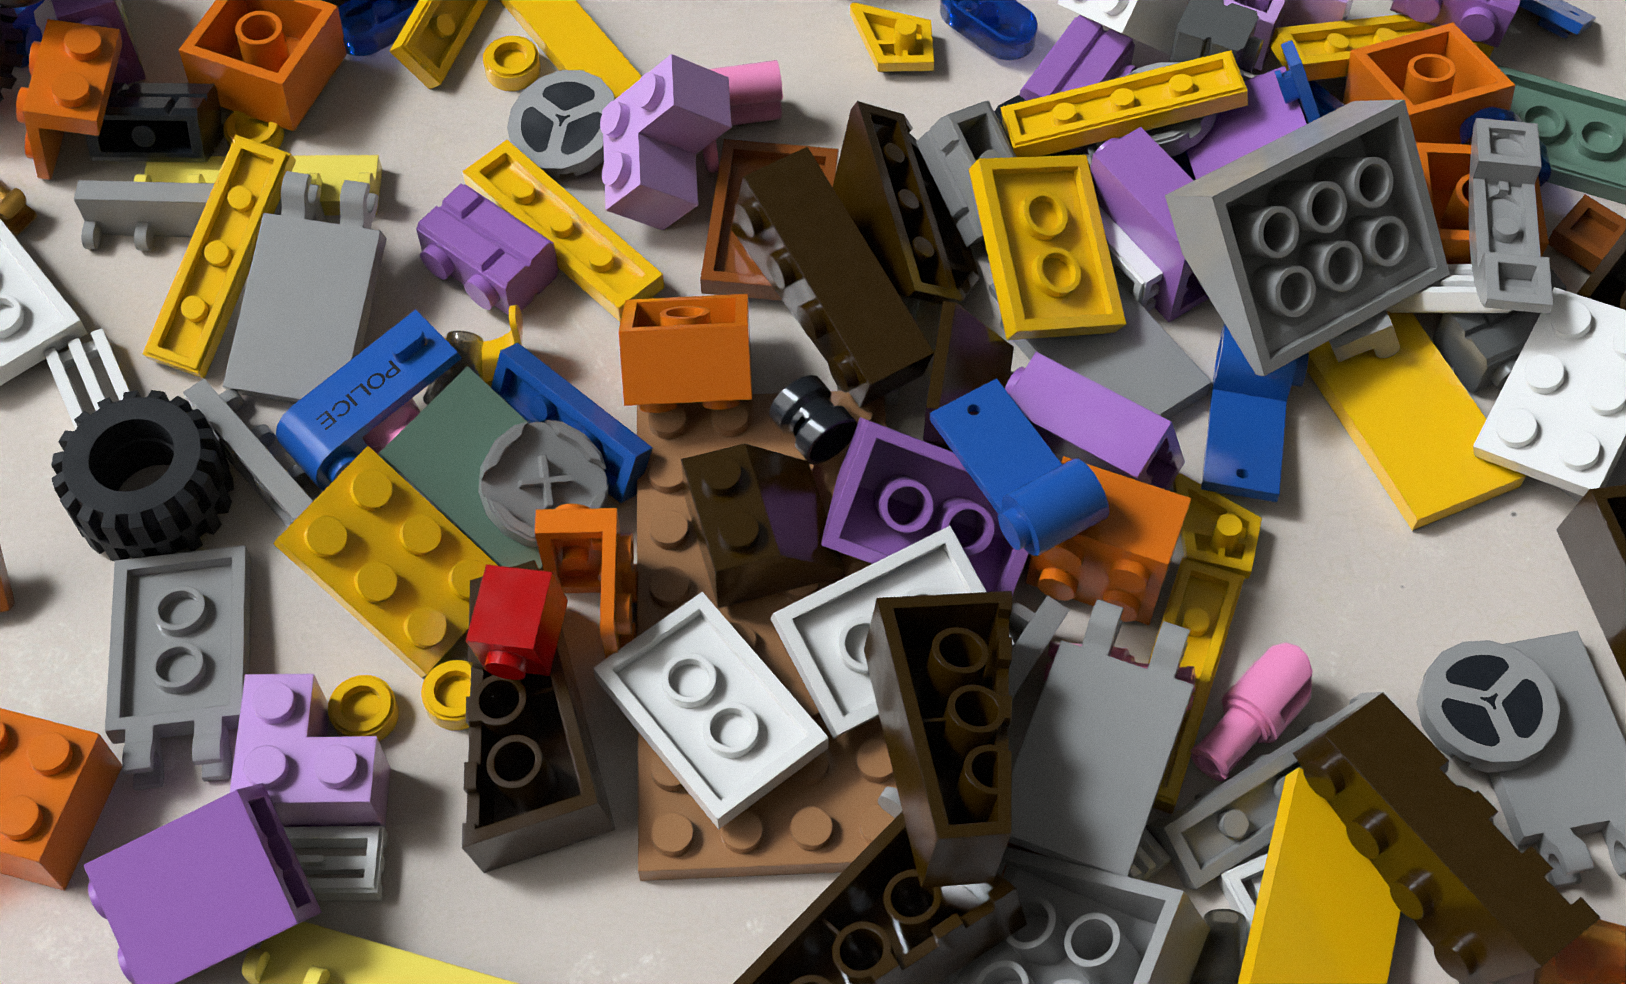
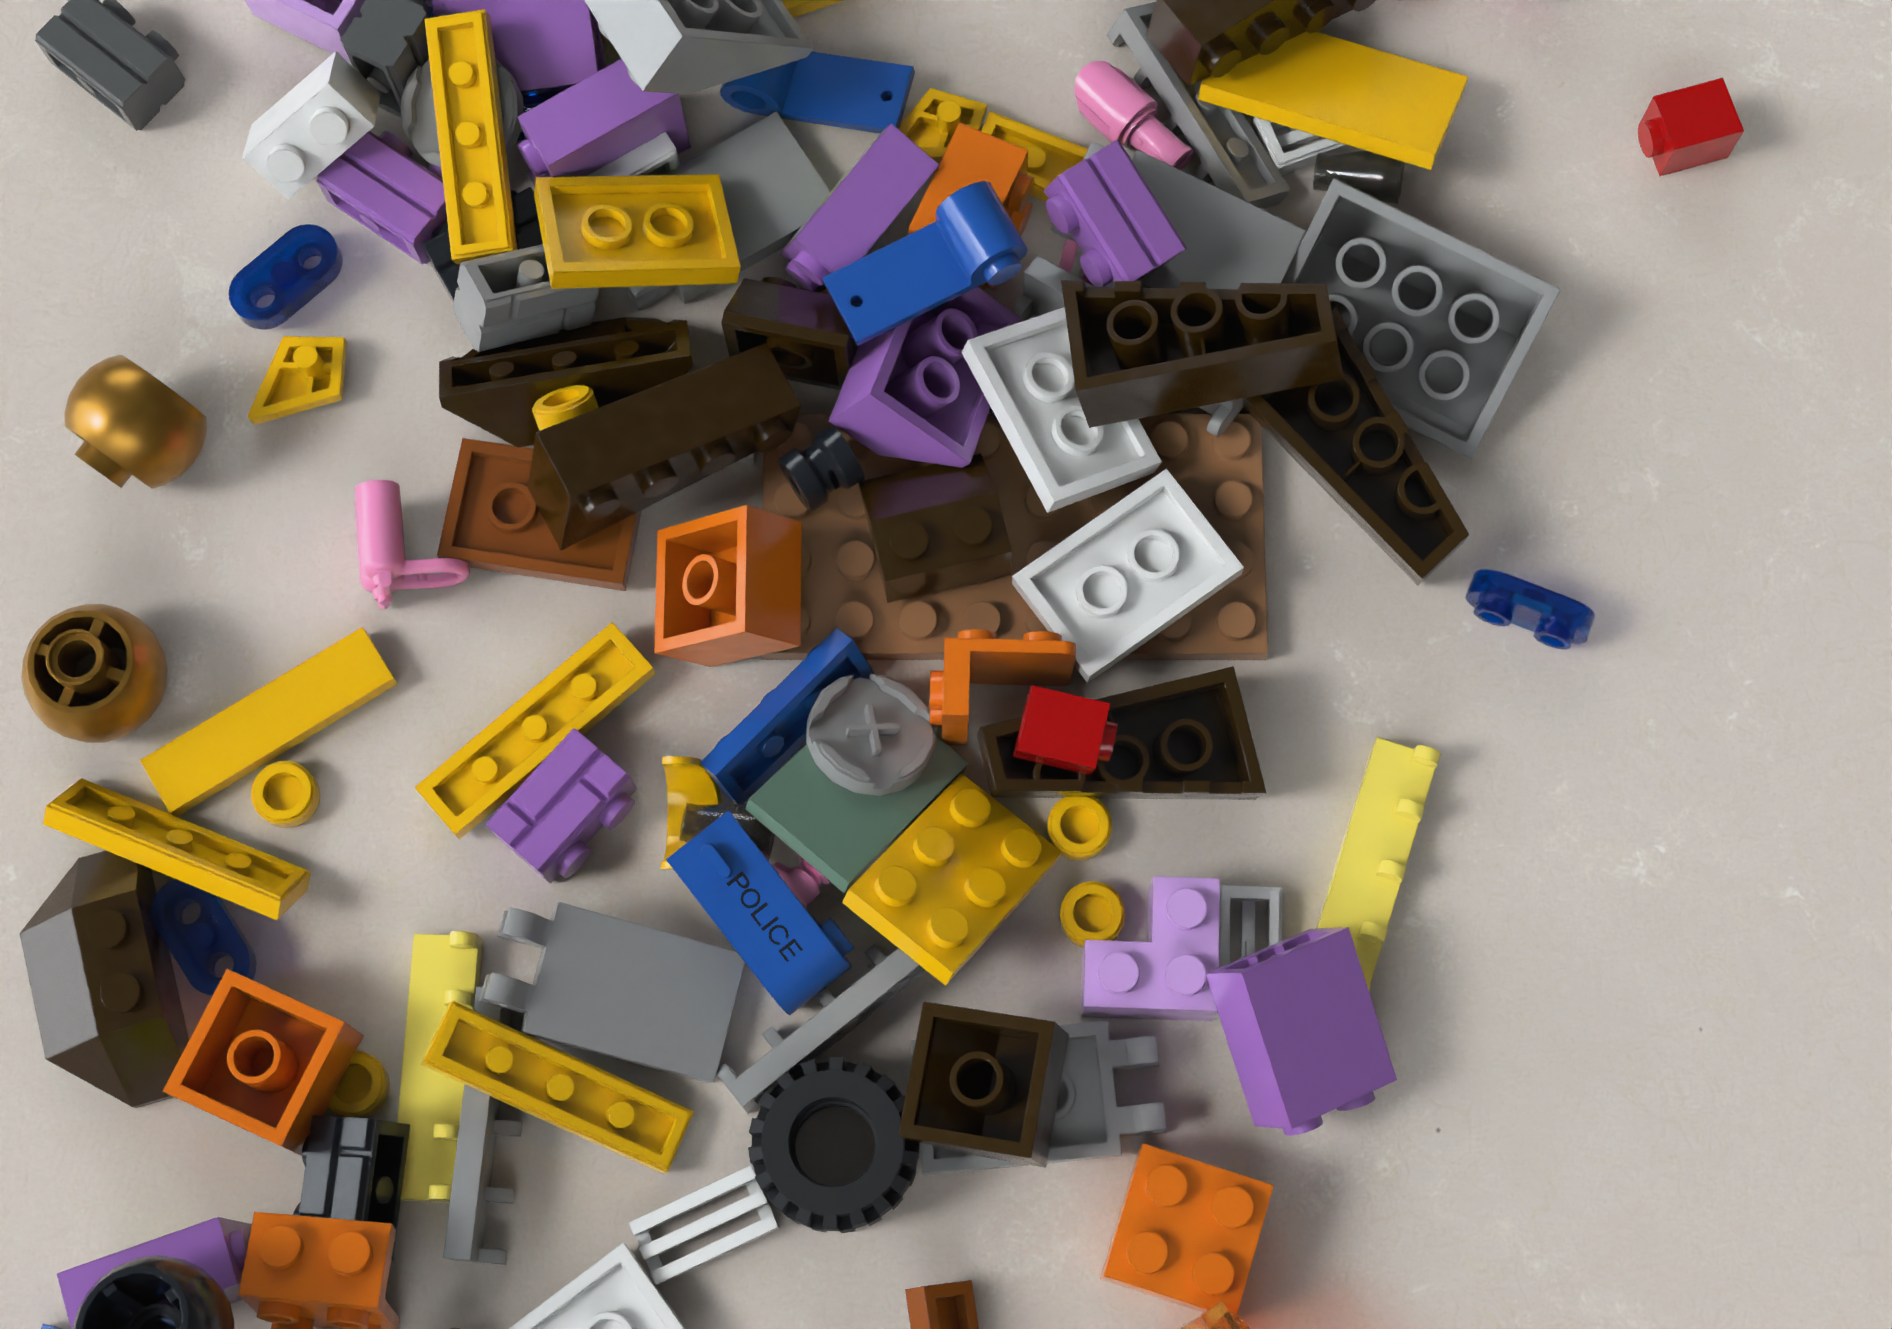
camera: 85 degrees left, 15 degrees up
(169, 586) = (984, 1083): none -> dark brown slope
(560, 122) = (391, 727): light grey tile -> none
(655, 138) = (454, 622): lavender brick -> none
(854, 193) = (563, 405): none -> yellow tile
(1091, 642) = (1112, 218): none -> medium lavender brick

